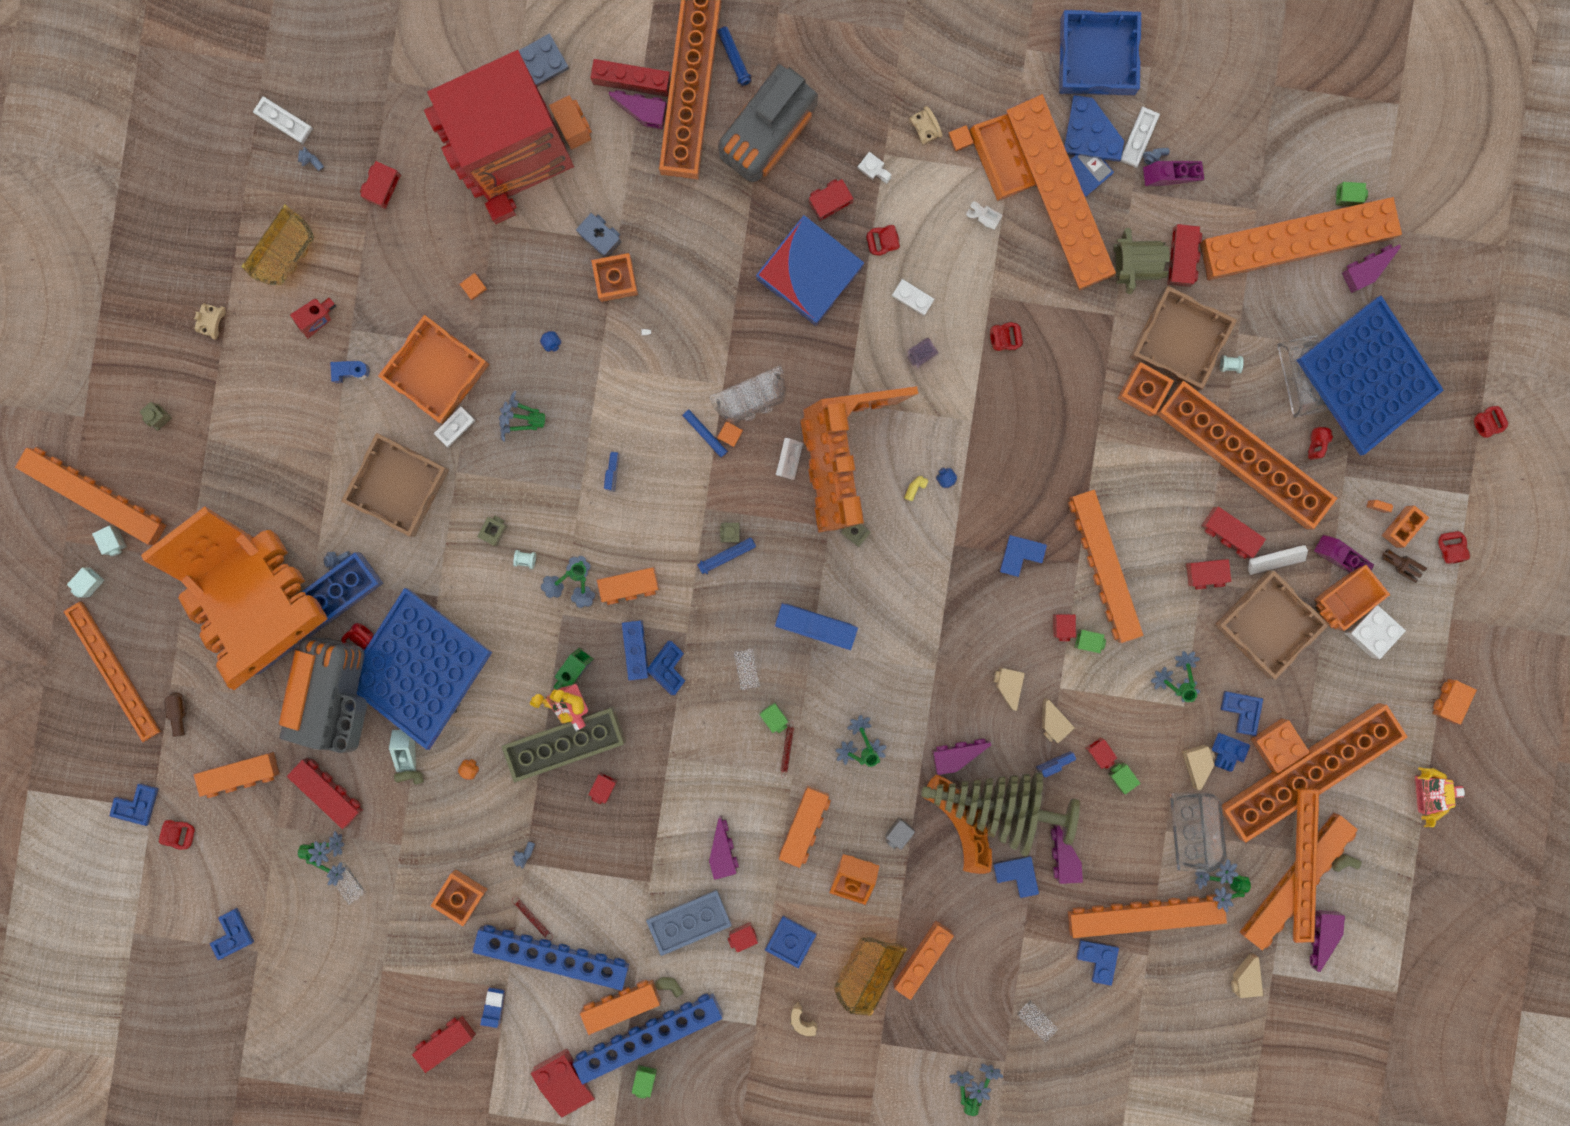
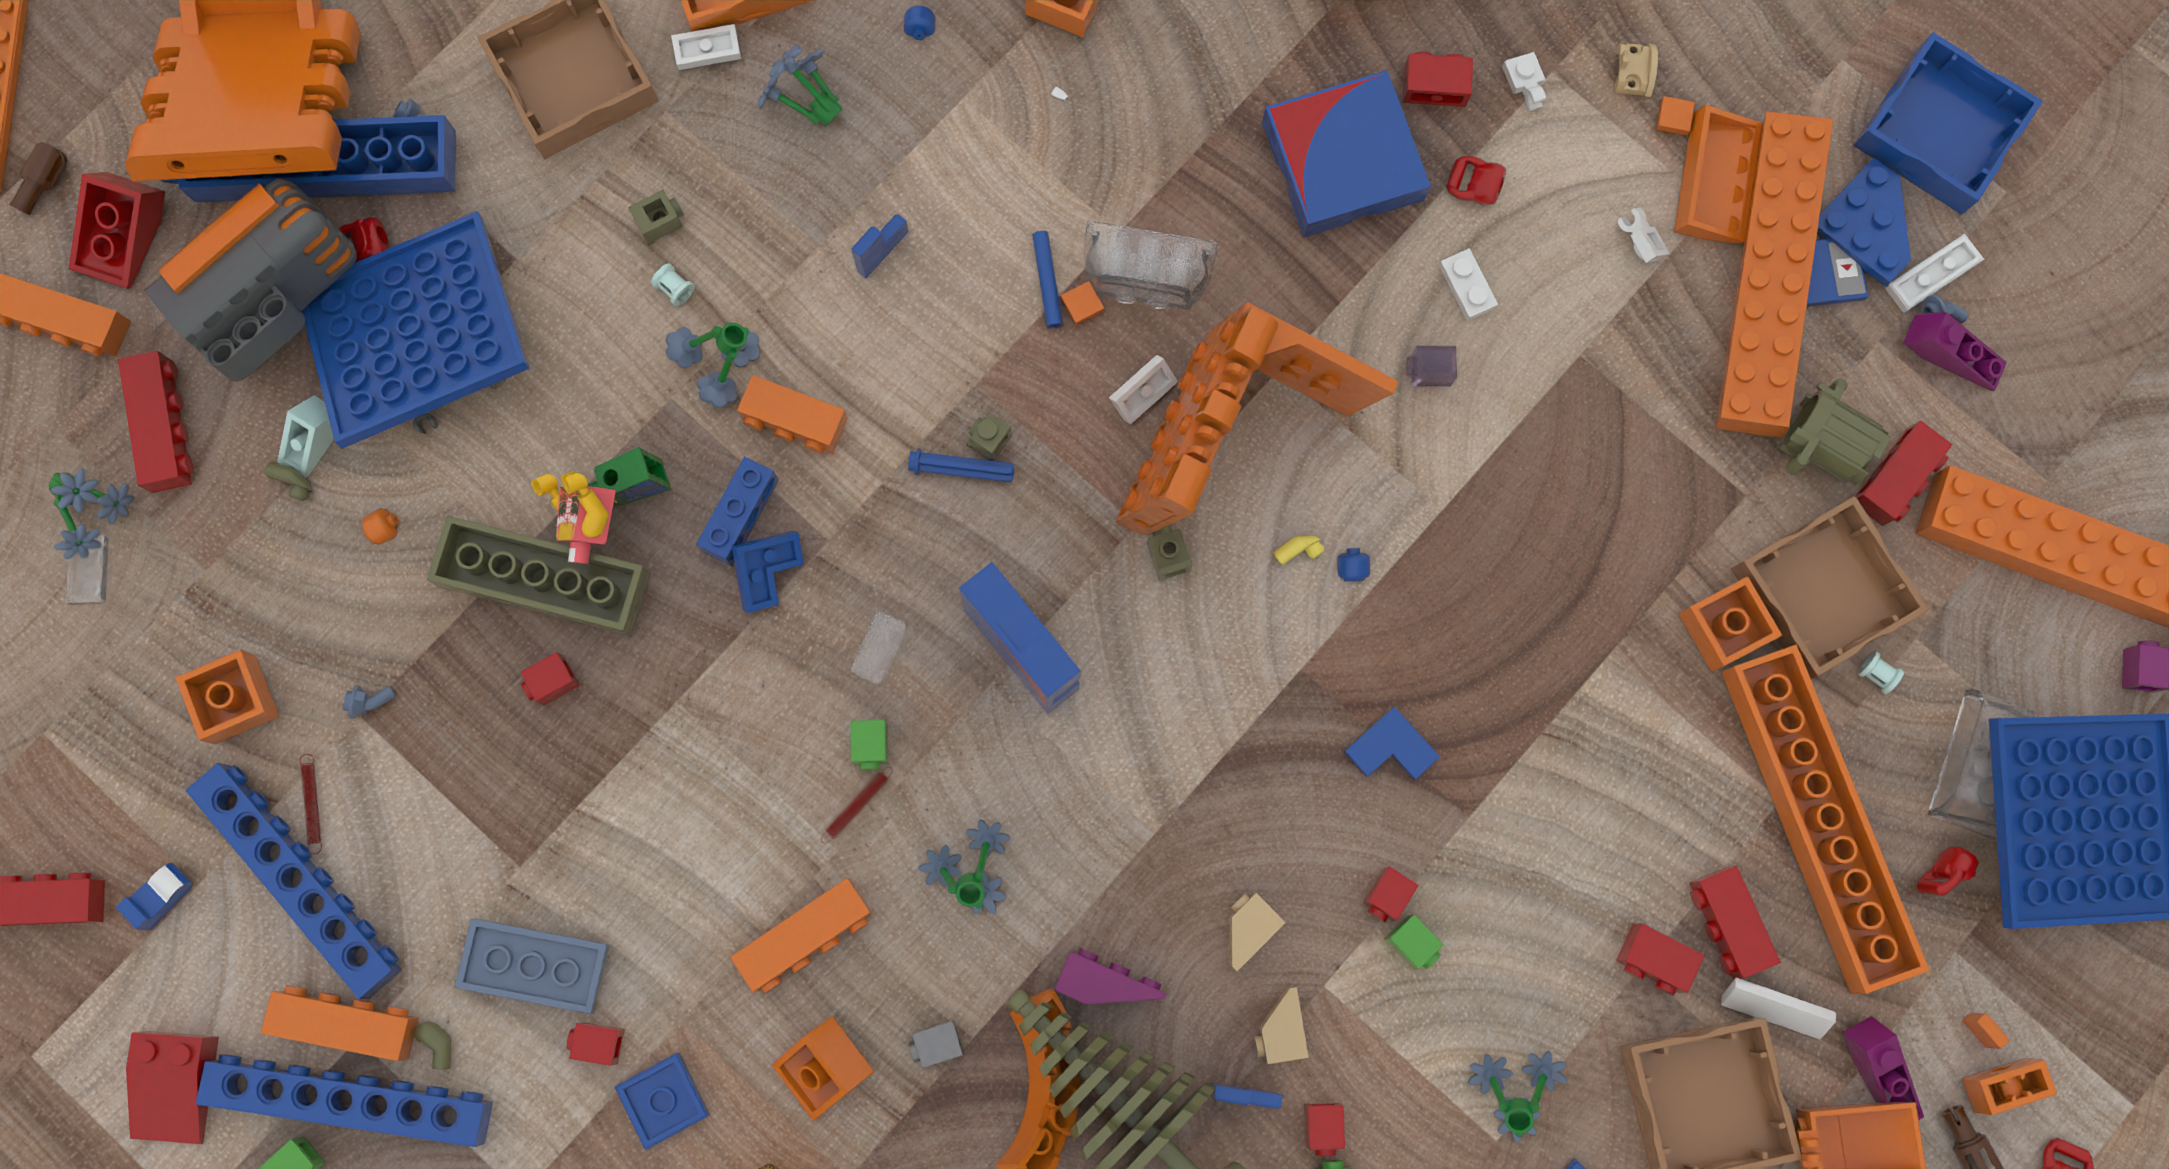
camera: 25 degrees right, 10 degrees down
(232, 714) = (114, 227): none -> red slope
(721, 856) = (650, 895): magenta slope -> none
(1001, 337) = (1561, 418): red piece -> none
(1105, 566) = (1509, 847): orange brick -> none

